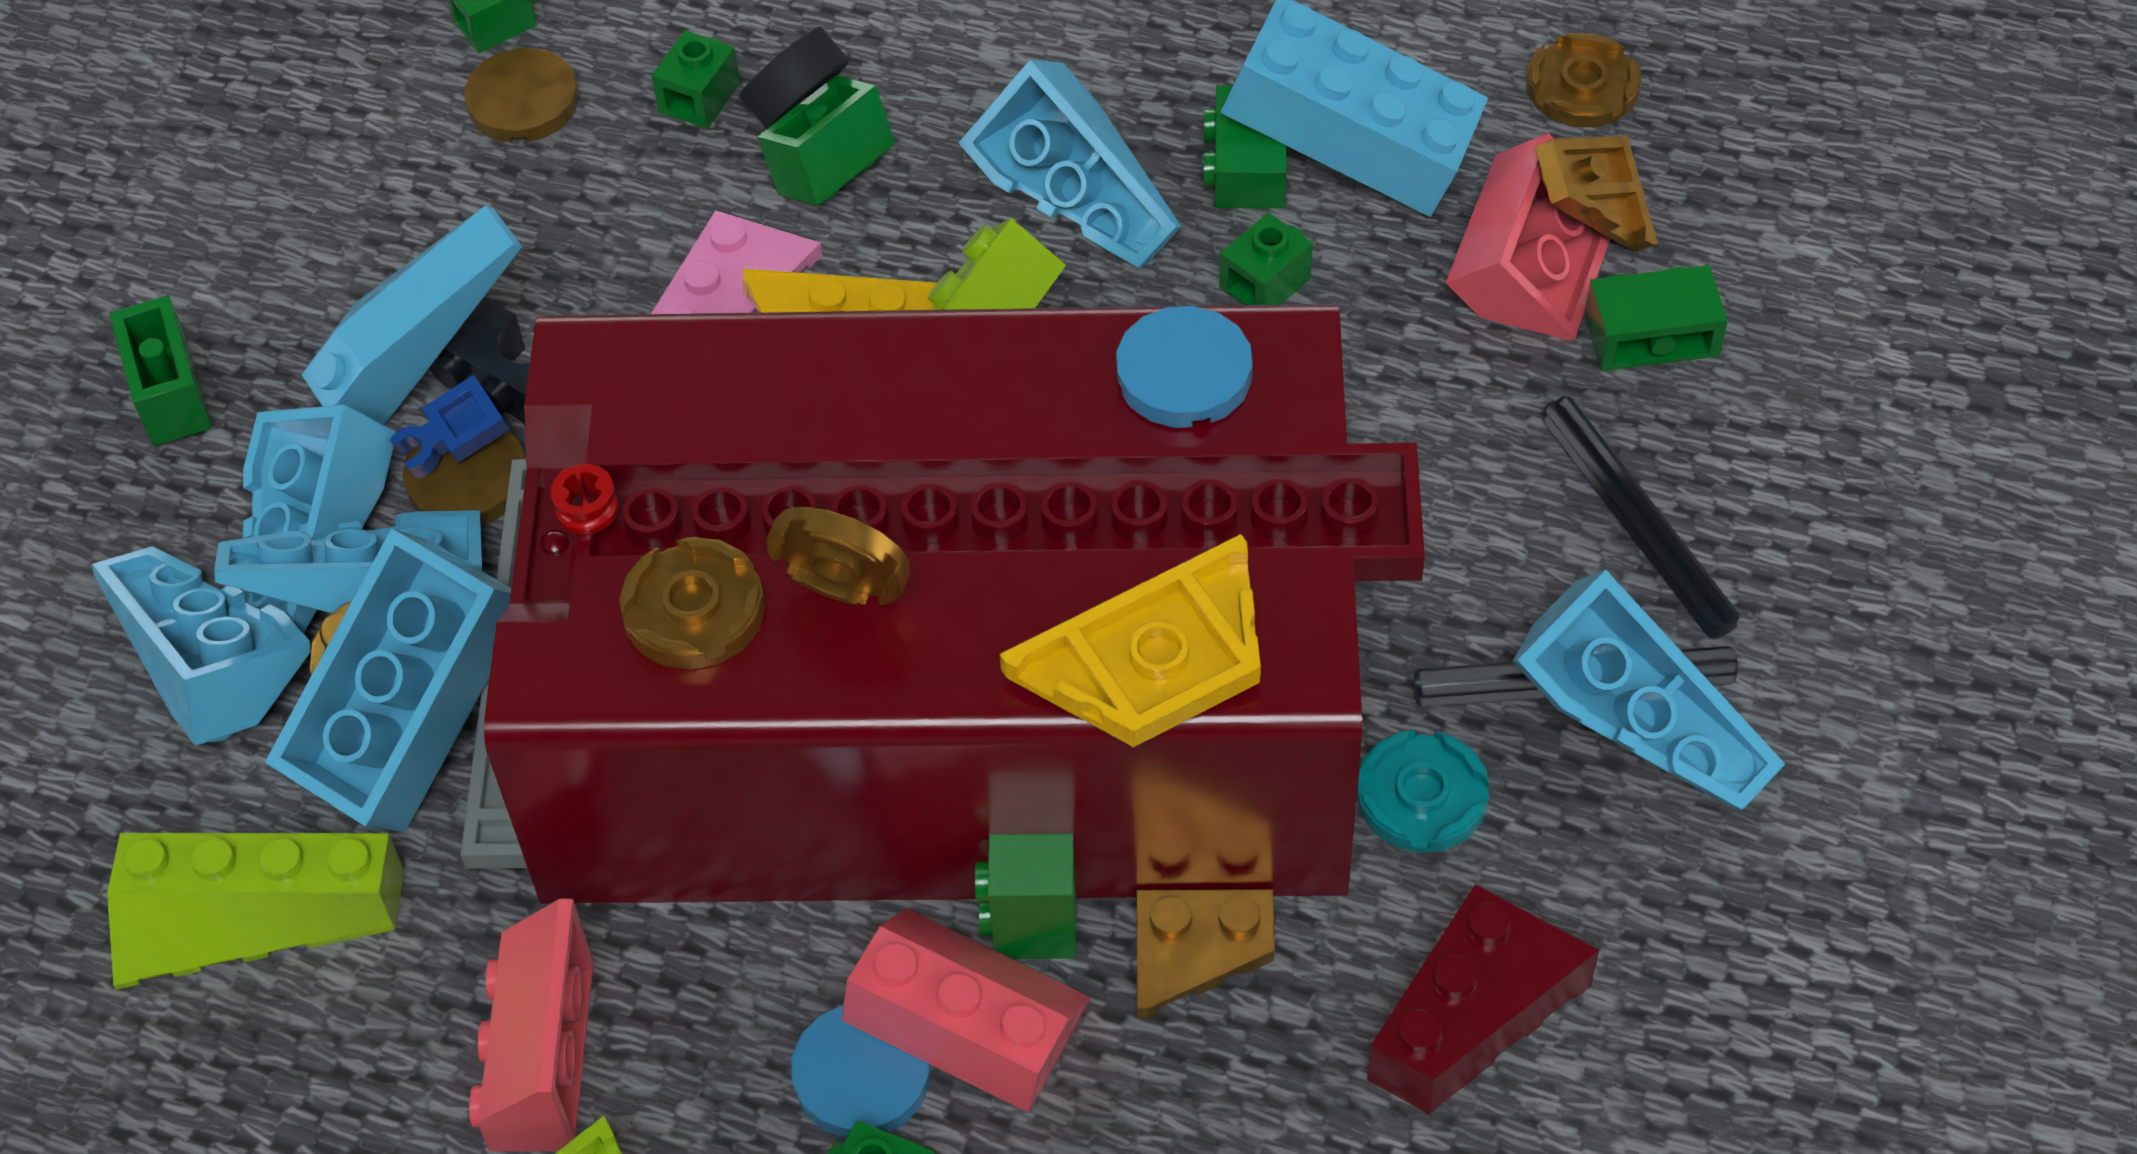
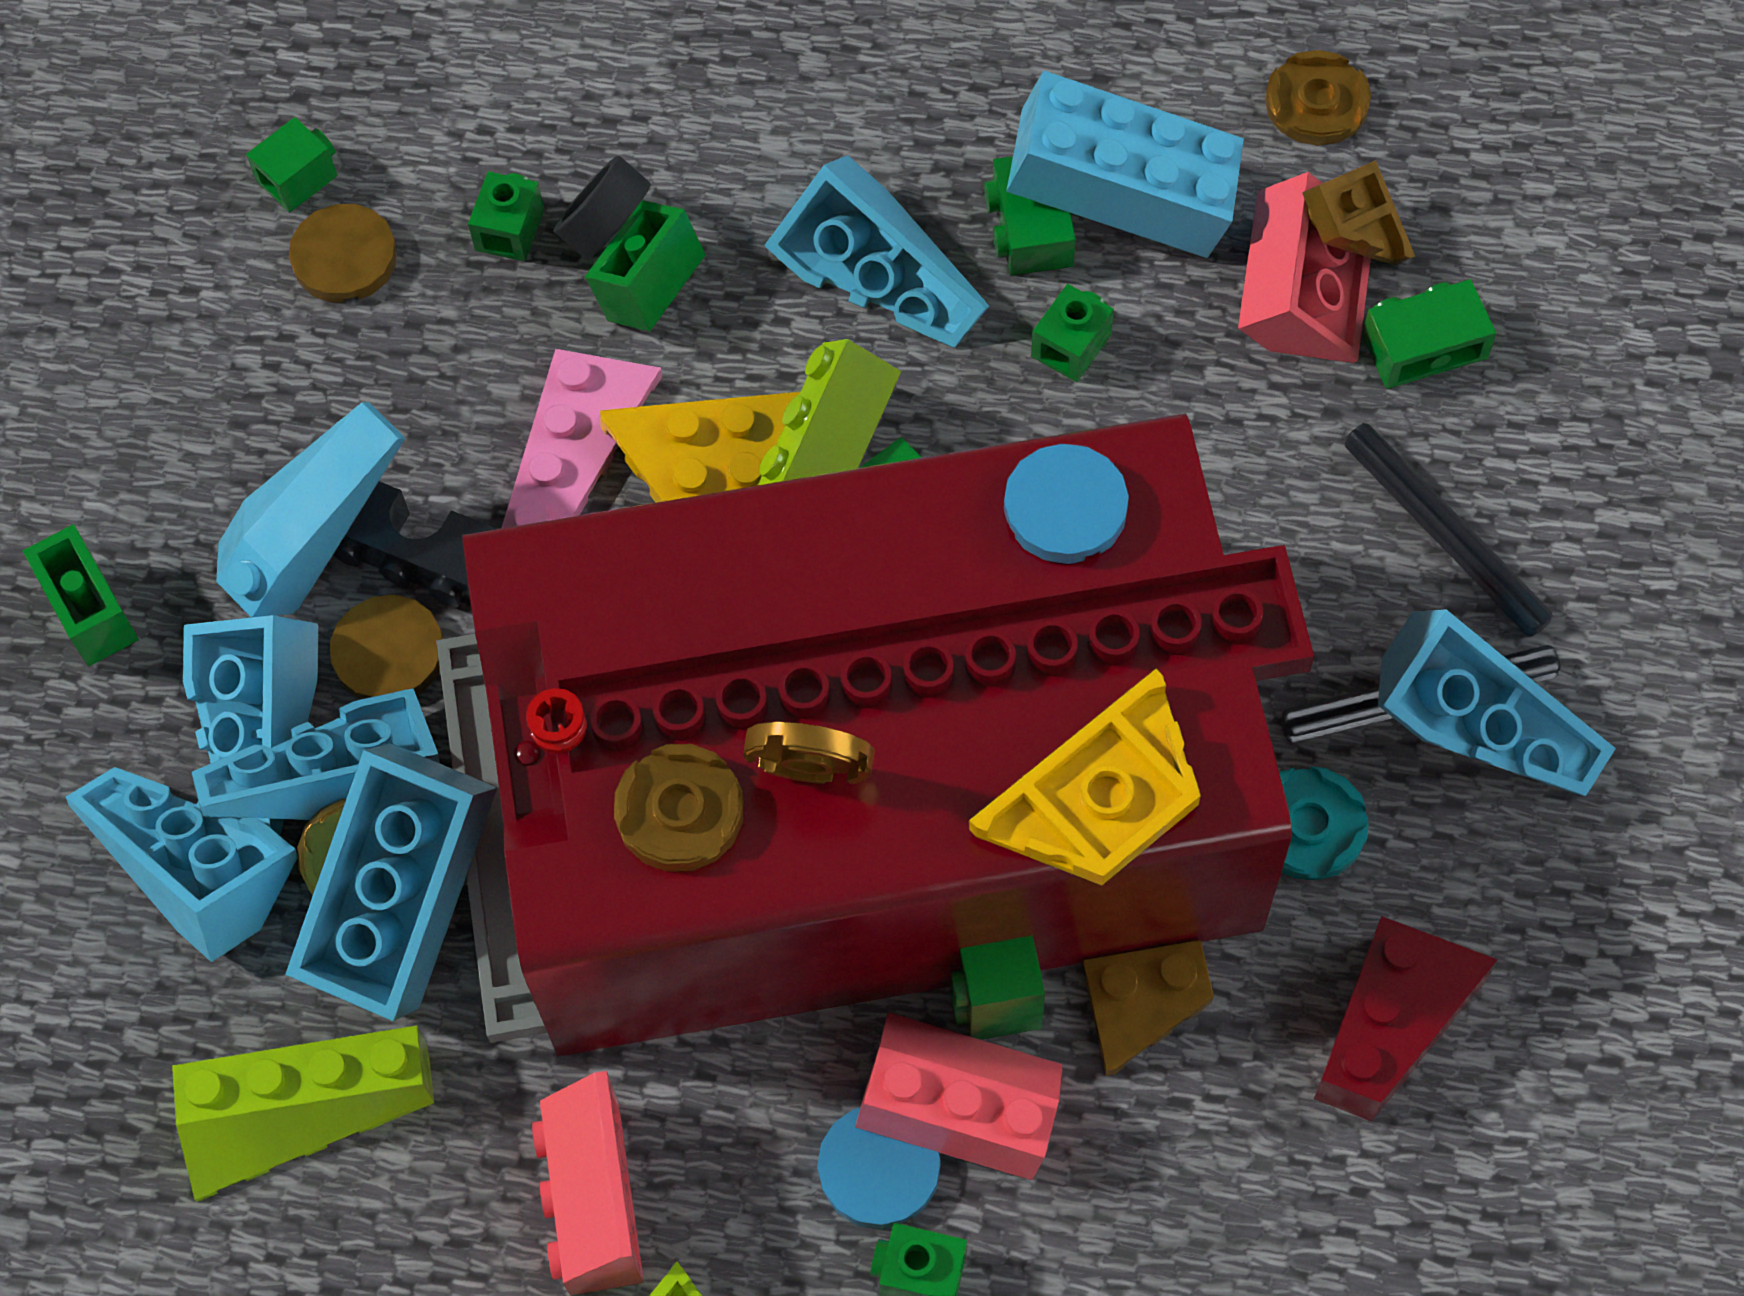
camera: 10 degrees left, 10 degrees up
(458, 423) = (374, 606): blue plate -> none

